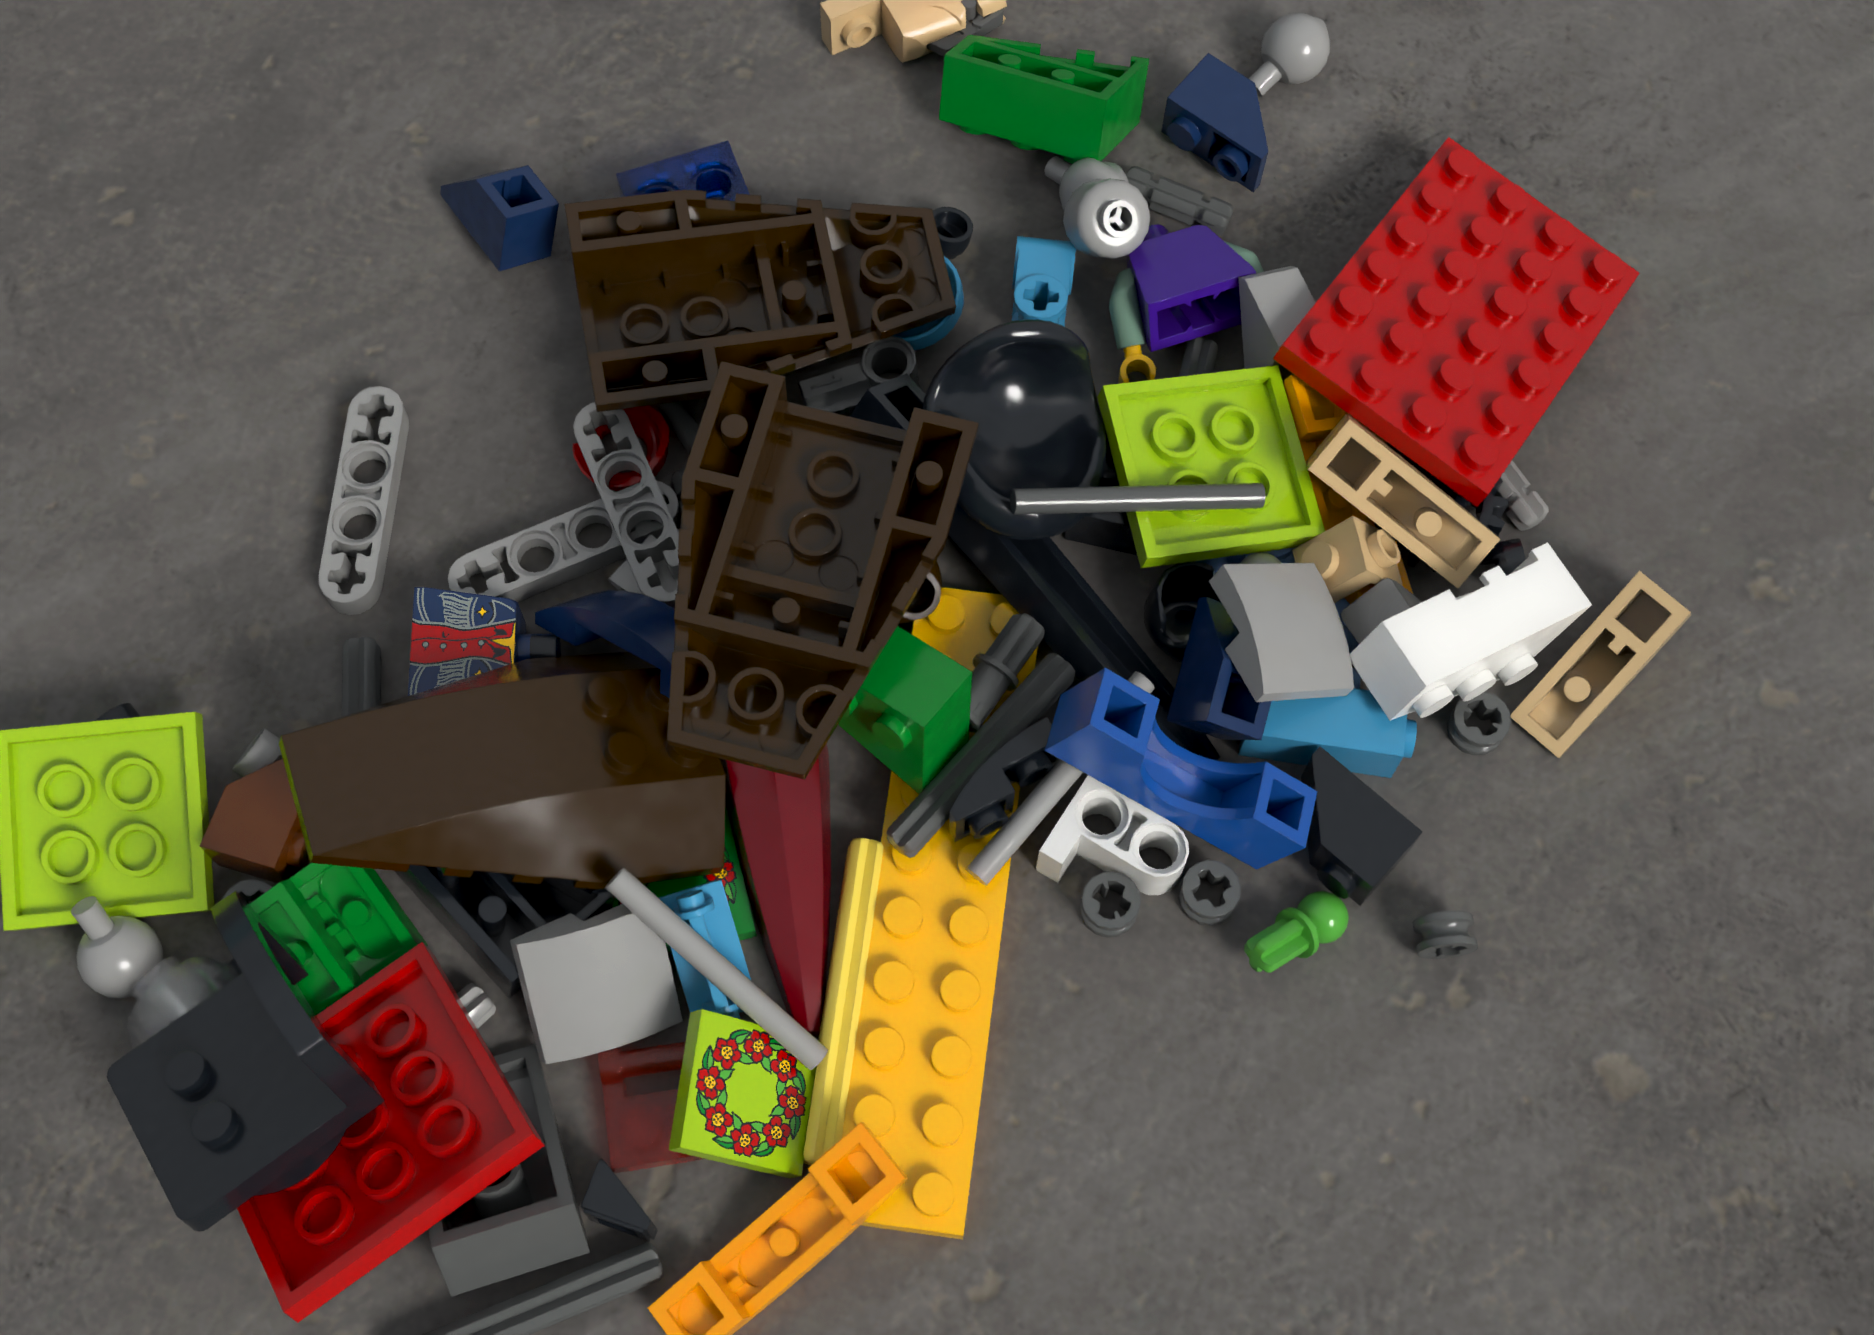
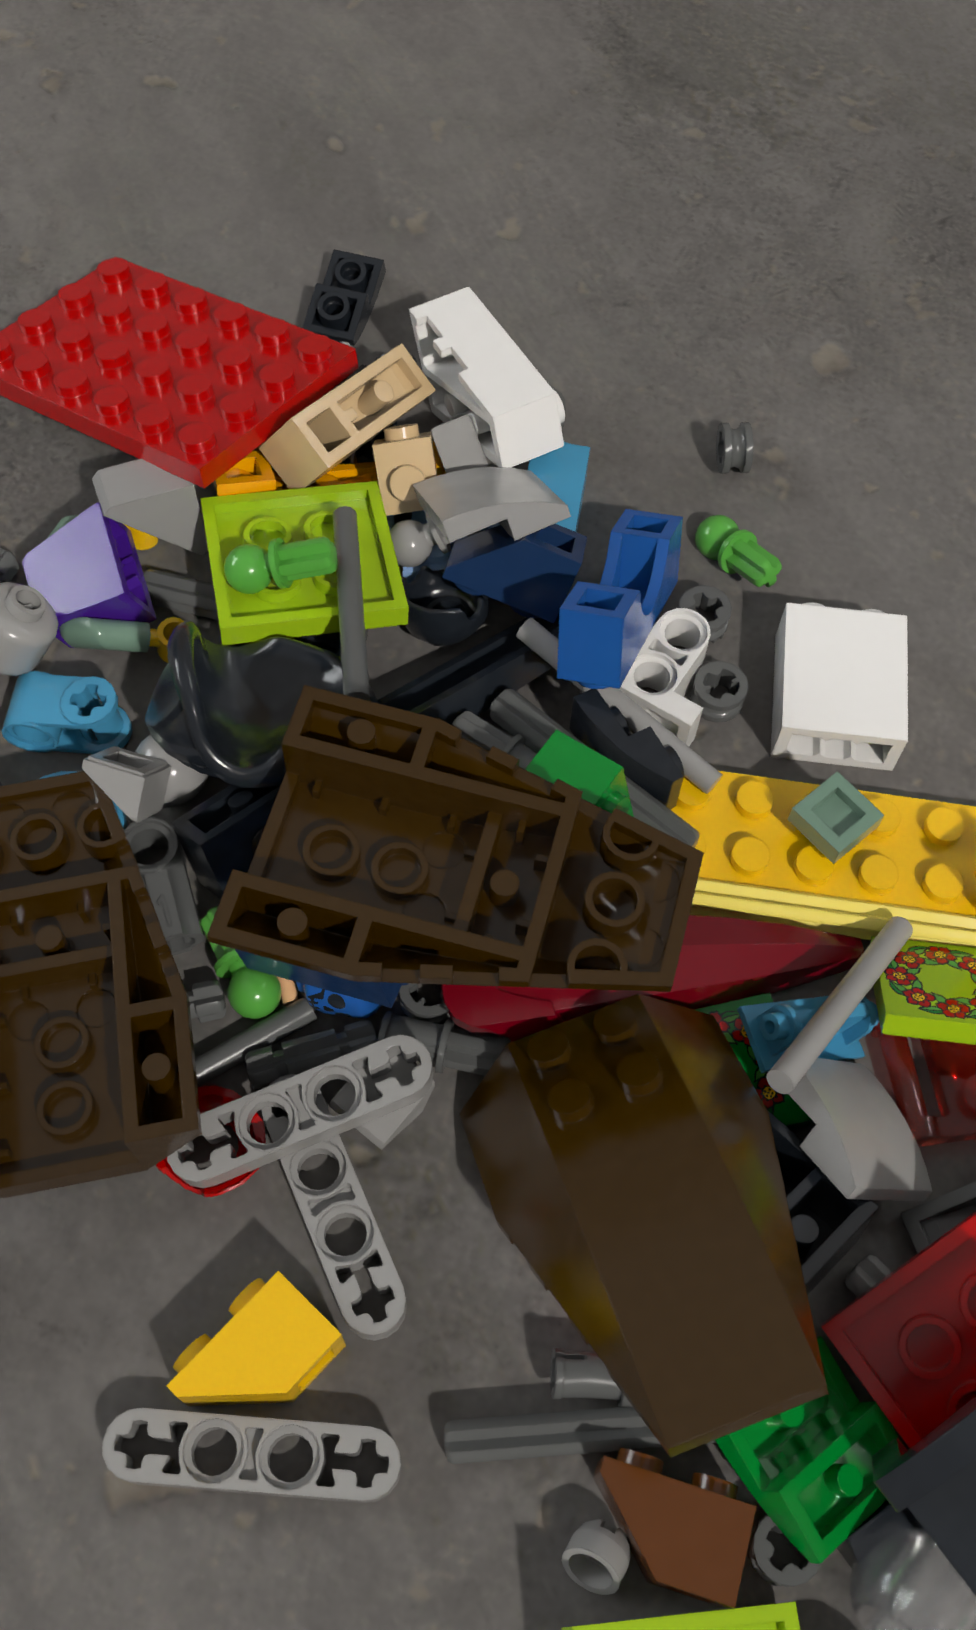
camera: 90 degrees left, 5 degrees down
(440, 497) = (262, 1354): none -> yellow slope
(468, 635) = (470, 1299): torso -> none
(624, 619) = (470, 1083): dark blue slope -> none
(933, 991) = (835, 817): none -> sand green plate
(942, 327) = (130, 780): none -> light grey slope
(1120, 1028) = (840, 686): none -> white brick
(1179, 429) = (252, 568): none -> bright green axle
(1352, 830) = (652, 483): black slope -> none
(1600, 664) = (471, 266): tan slope -> none
(1618, 513) = (346, 297): none -> black slope

